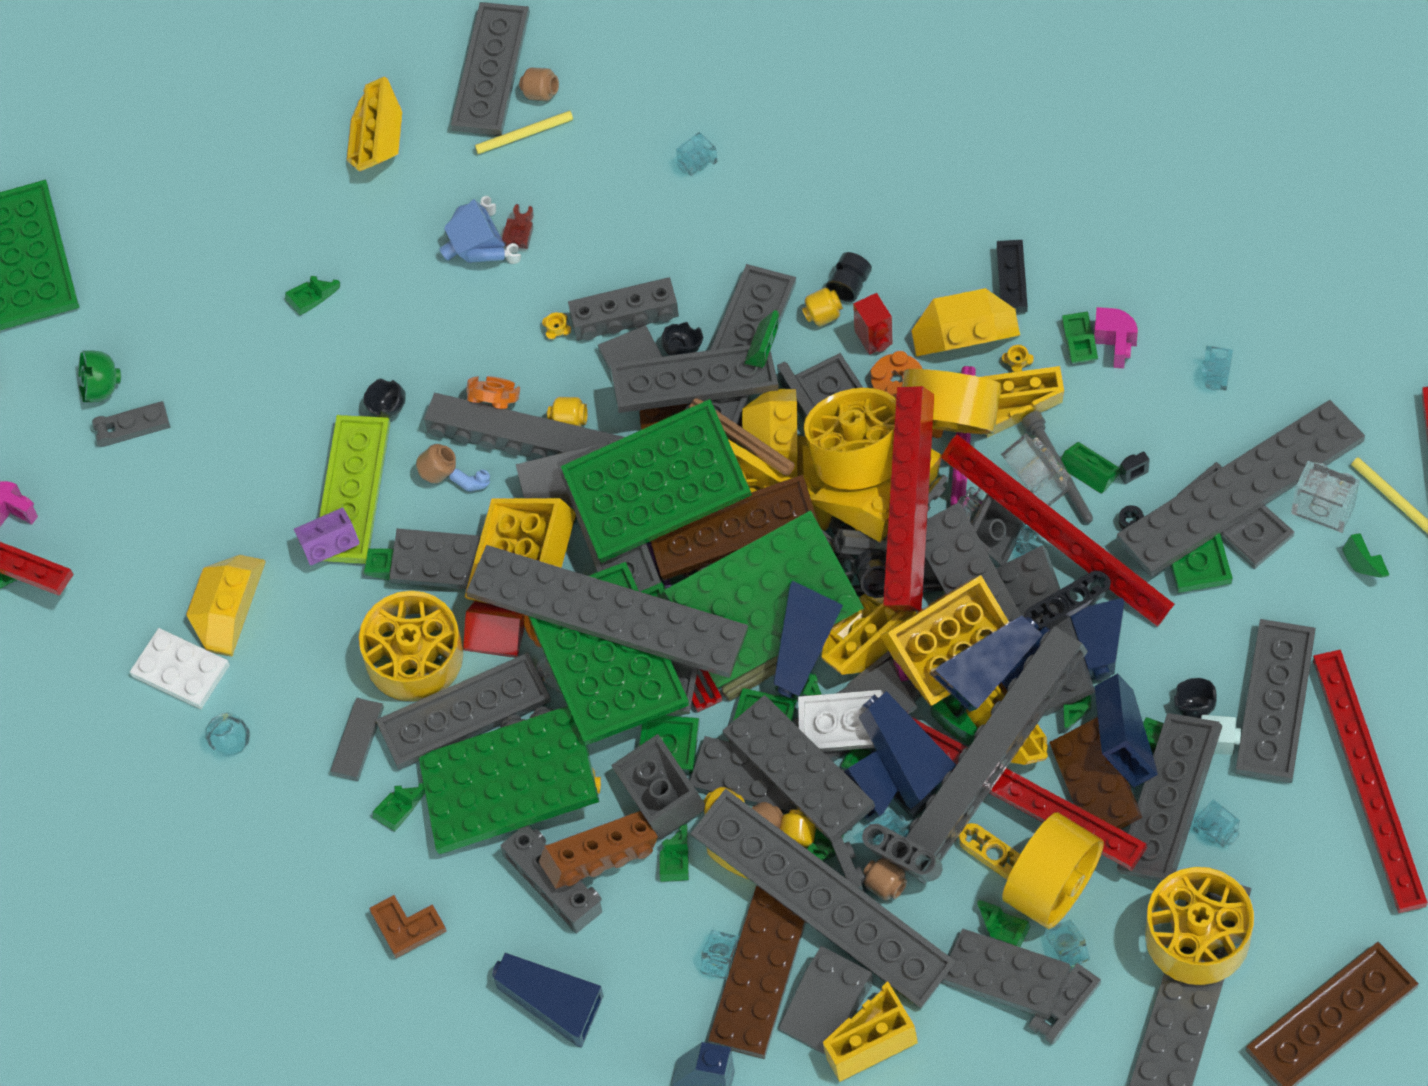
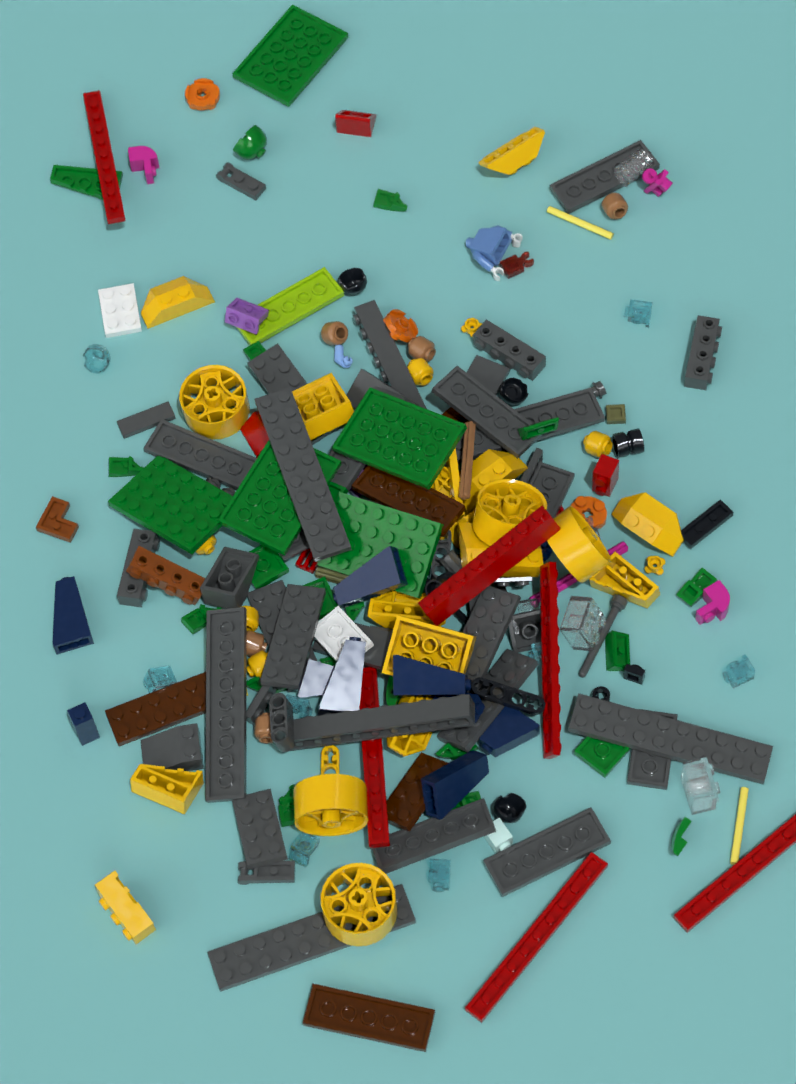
camera: 50 degrees right, 0 degrees up
(173, 254) = (355, 123): none -> red slope
(514, 30) = (632, 167): none -> clear piece
(540, 392) = (421, 348): none -> medium nougat head
(552, 22) = (658, 183): none -> dark pink hips
(754, 258) = (598, 389): none -> dark grey plate
(797, 265) = (616, 414): none -> olive tile
(801, 132) = (701, 353): none -> dark grey brick

